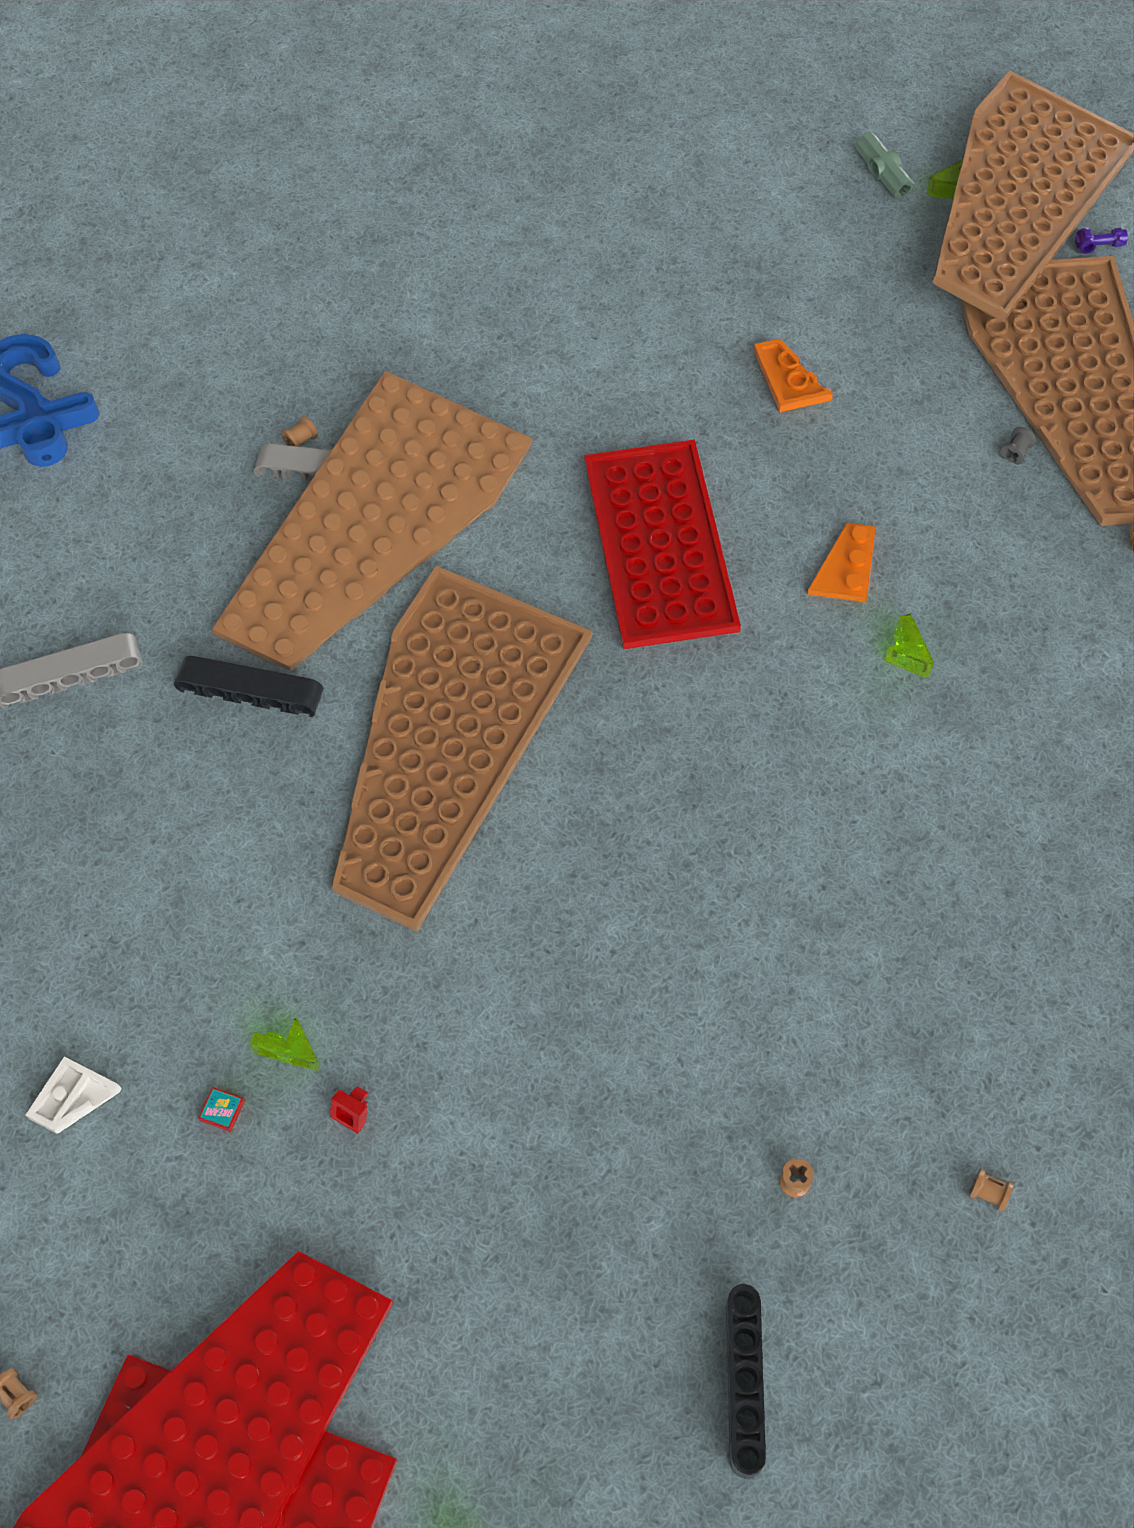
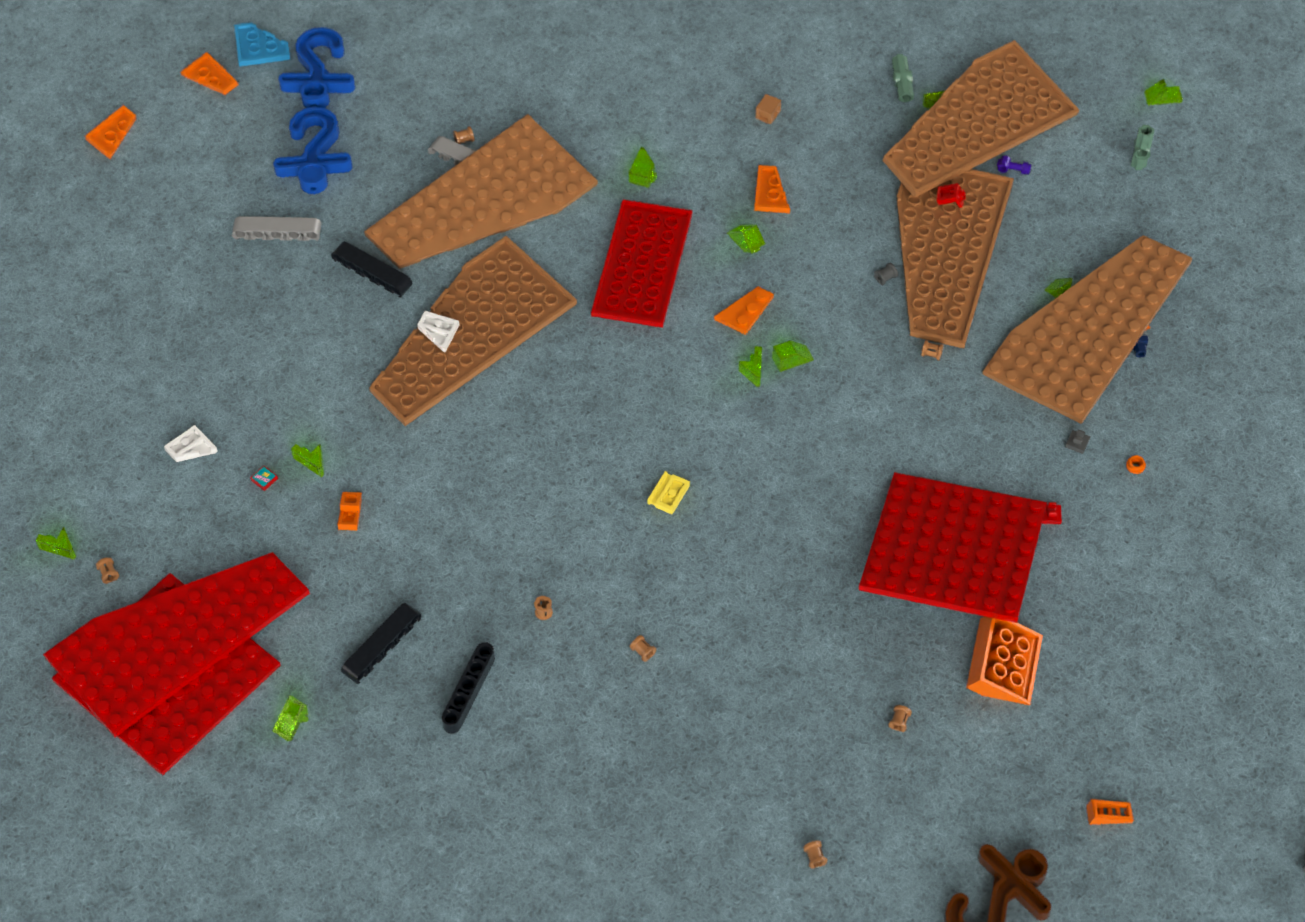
camera: 20 degrees right, 5 degrees down
(81, 550) = (314, 163): none -> blue piece
(350, 1109) = (329, 498): red tile -> none
(392, 1117) = (349, 510): none -> orange slope
(402, 751) = (438, 329): none -> white wing
(556, 1352) = (380, 642): none -> black beam
(592, 401) = (642, 170): none -> clear neon green slope
(725, 261) = (768, 109): none -> medium nougat brick
(794, 454) = (747, 237): none -> clear neon green slope
(889, 898) = (668, 492): none -> light yellow plate
(951, 614) = (790, 355): none -> clear neon green slope
(1049, 302) = (950, 194): none -> red bracket

